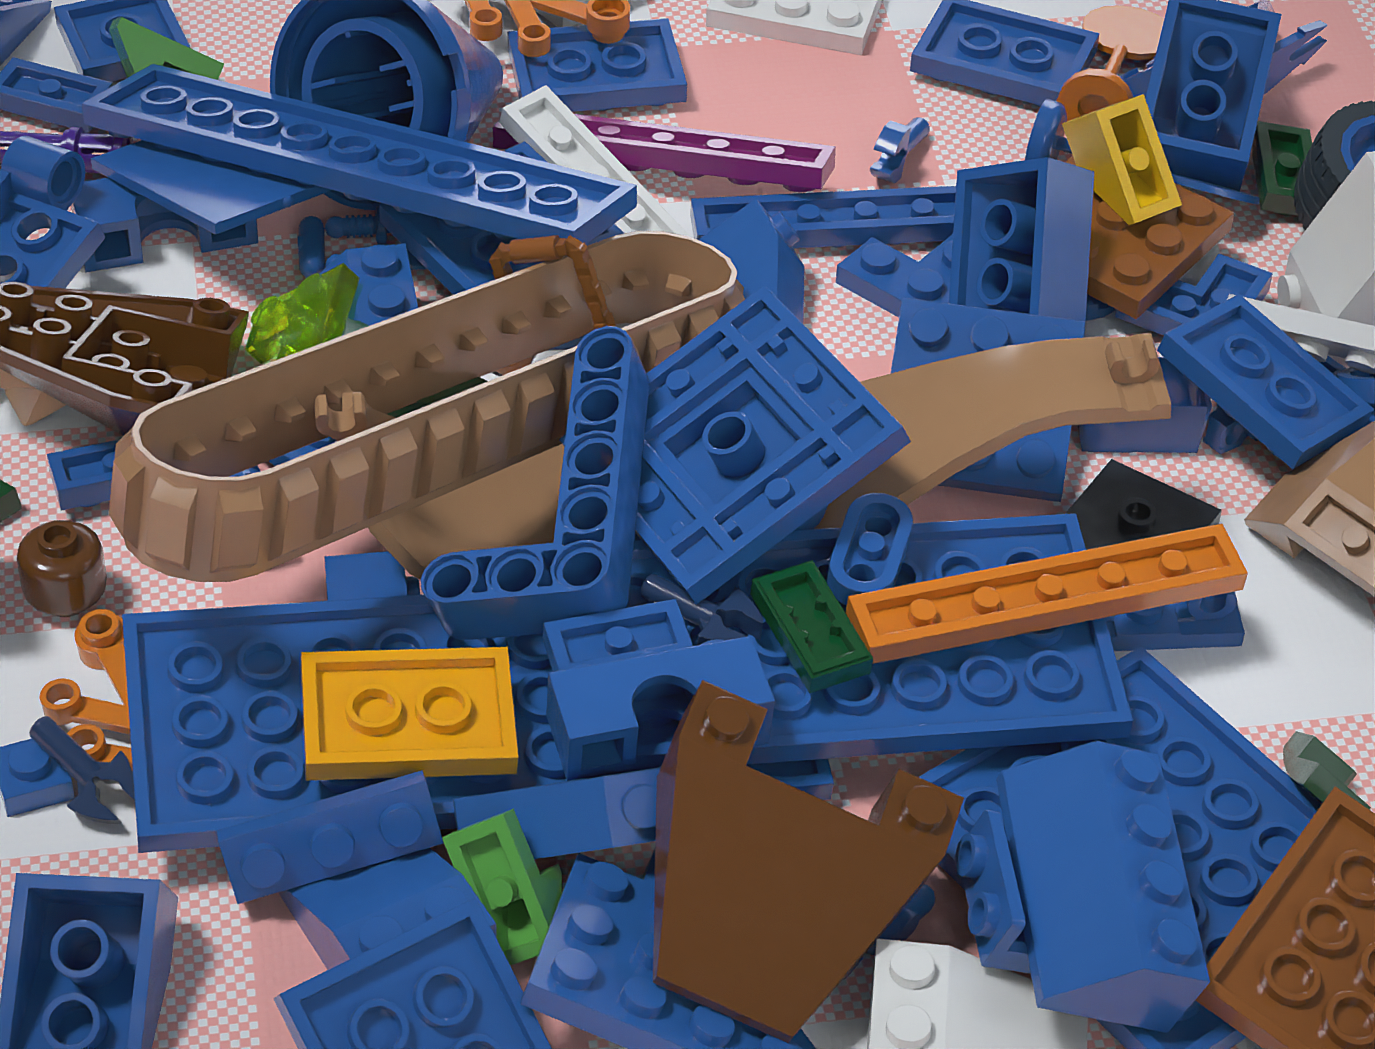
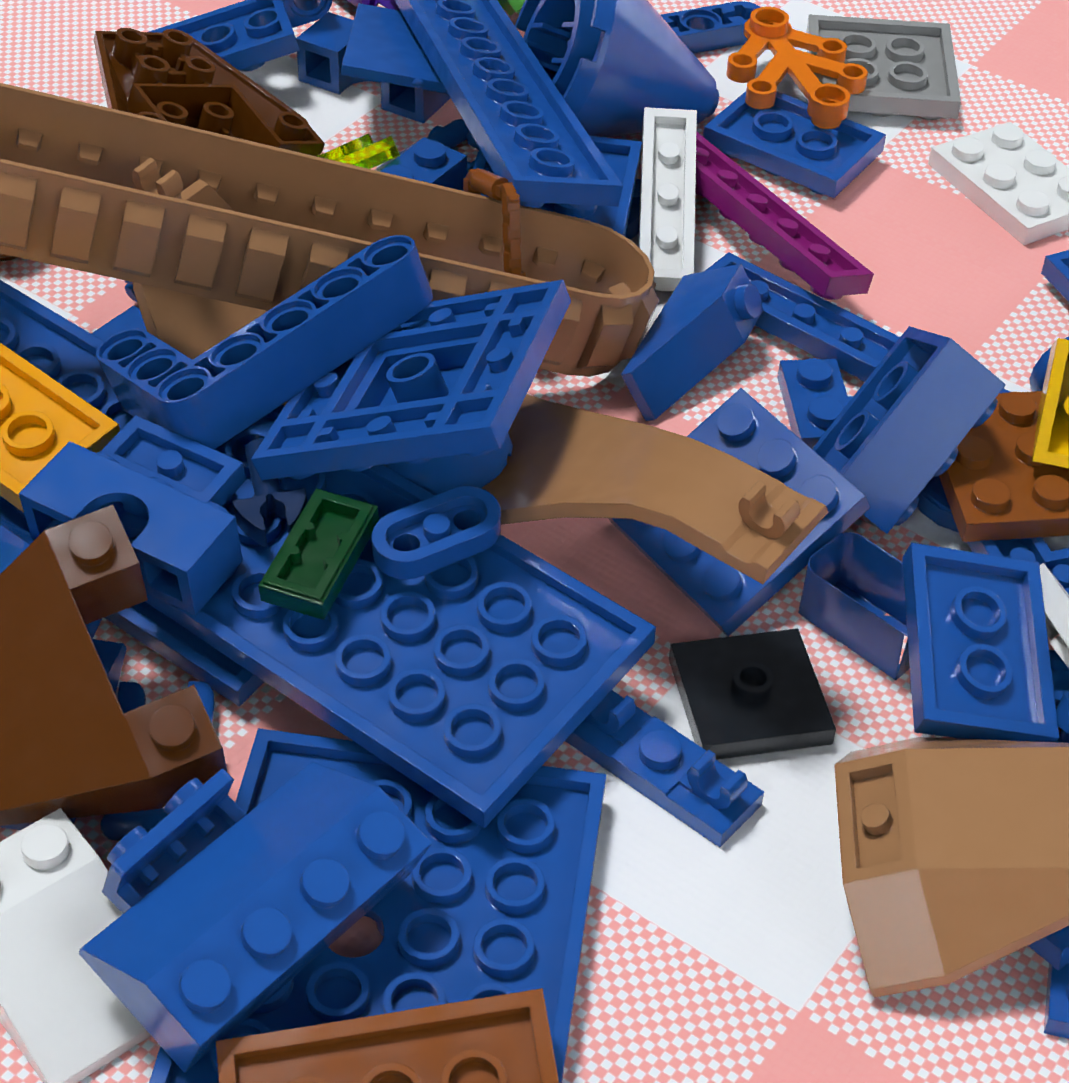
camera: 45 degrees right, 0 degrees up
(895, 143) = (941, 309): blue bar -> none
(1046, 593) = (536, 663): orange plate -> none
(1317, 767) = (603, 996): dark green slope -> none

